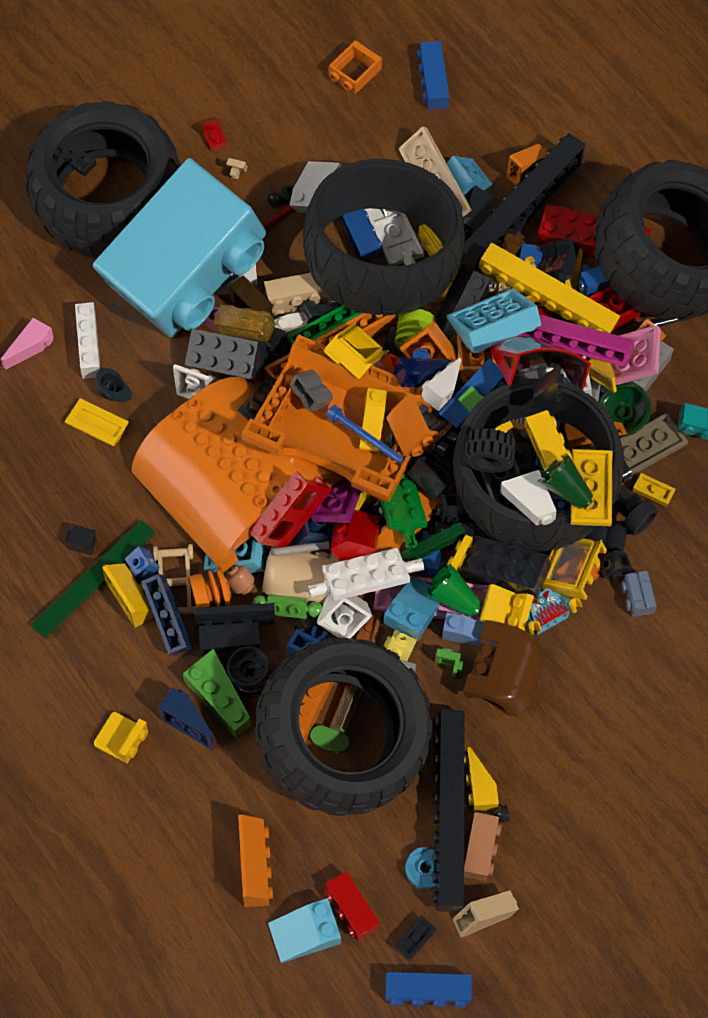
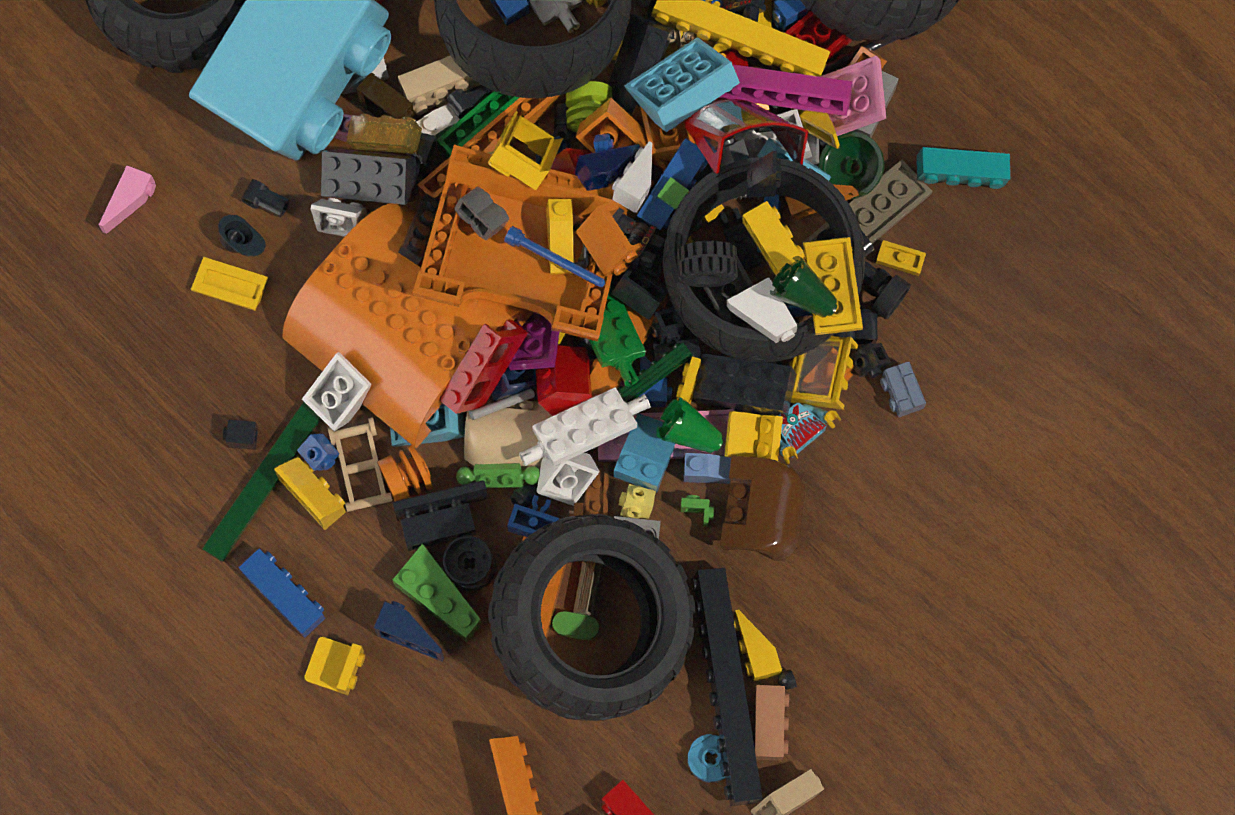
camera: 10 degrees left, 10 degrees up
(87, 340) = (198, 182): white brick -> none
(89, 670) = (282, 593): none -> blue brick
(135, 359) = (259, 196): none -> black piece
(167, 516) = (337, 392): none -> white slope
(167, 615) = (360, 511): dark blue brick -> none
(240, 579) = (437, 452): nougat head -> none

